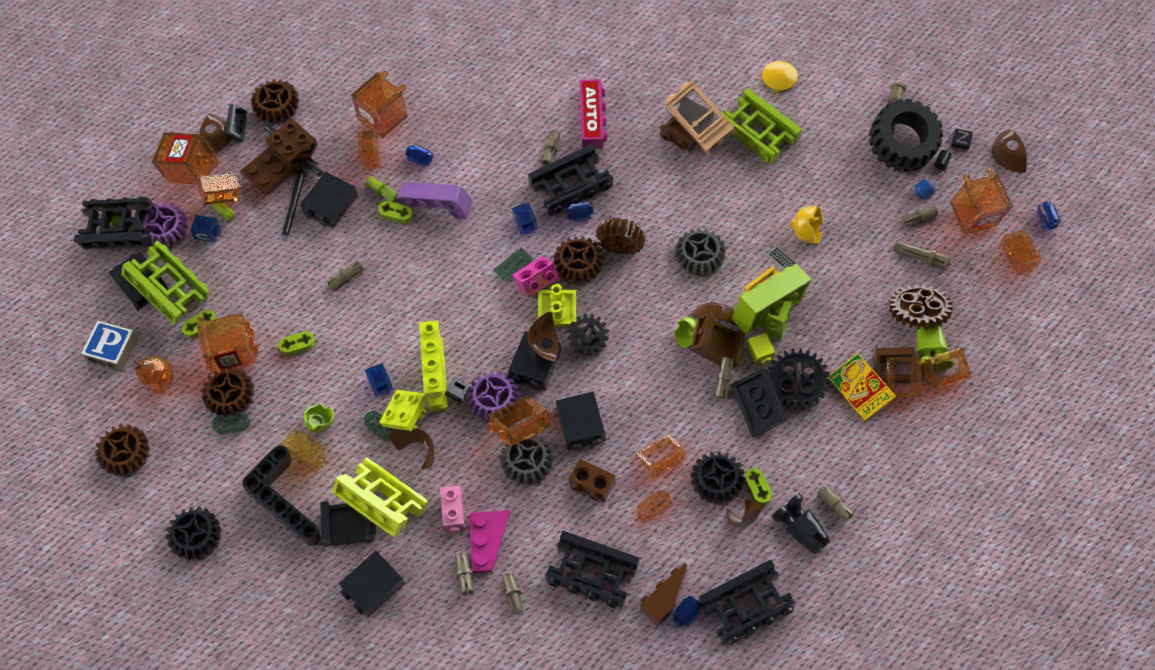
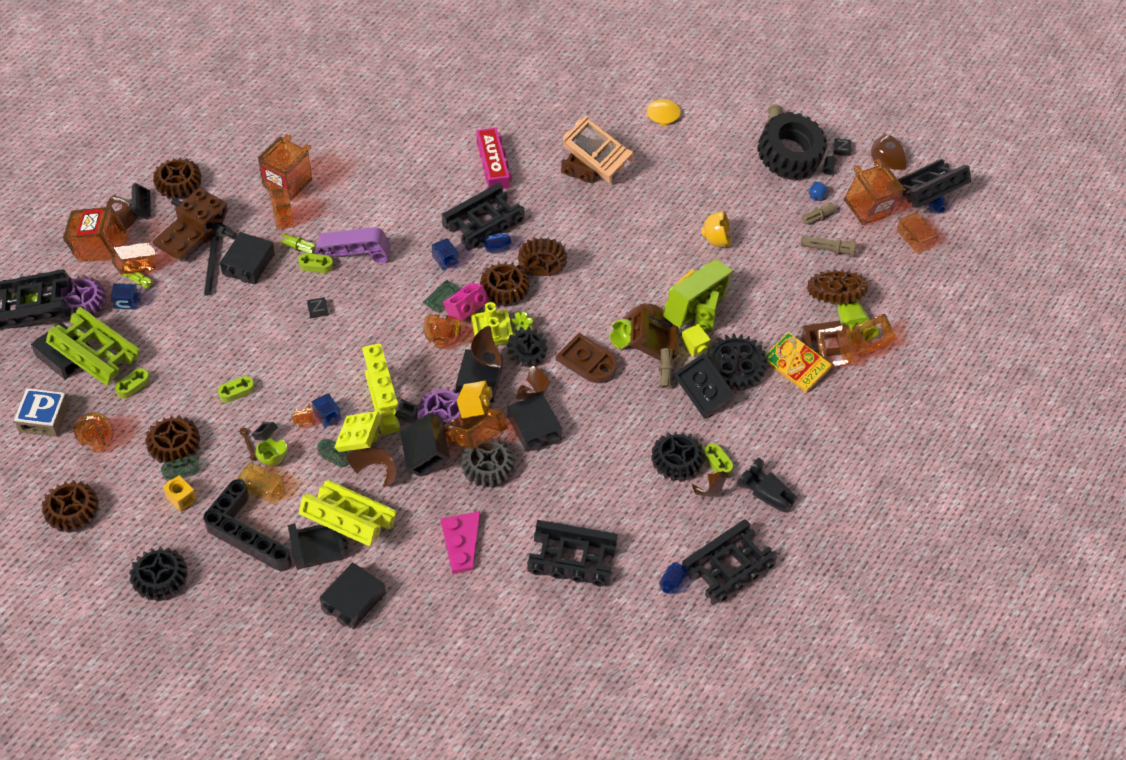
camera: 15 degrees left, 10 degrees down
(227, 342) = (166, 392): clear orange container -> none
(231, 455) = (184, 498): none -> yellow brick
(297, 390) = (243, 431): none -> reddish brown hinge
(316, 394) = (264, 431): none -> black tile
(344, 275) = (274, 323): dark tan pin -> none
(355, 383) = (303, 416): none -> clear orange brick
(389, 262) = (317, 307): none -> black tile
(419, 155) = (330, 210): clear blue brick -> none
(452, 509) = (422, 517): bright pink brick -> none
(464, 573) = (445, 574): dark tan pin -> none
(466, 432) = (424, 444): none -> black brick
(505, 307) = (441, 330): none -> clear orange cylinder
(513, 592) = (497, 585): dark tan axle -> none
(522, 390) = (474, 399): none -> yellow brick
(550, 147) = (458, 191): dark tan pin -> none
(588, 305) = (522, 321): none -> lime plant
(594, 376) = (538, 381): none -> reddish brown piece
(594, 476) = (557, 471): reddish brown brick -> none
(646, 354) = (587, 359): none -> reddish brown plate
(656, 509) = (617, 487): clear orange beam -> none
(662, 601) = (646, 573): reddish brown slope -> none
(666, 462) = (624, 450): clear orange tile -> none
(700, 261) = (620, 264): dark grey gear -> none
(767, 116) = (661, 145): lime fence -> none
(781, 257) = (694, 261): sticker -> none
(835, 503) = (794, 464): dark tan pin -> none
(1061, 196) = (933, 182): none -> black fence

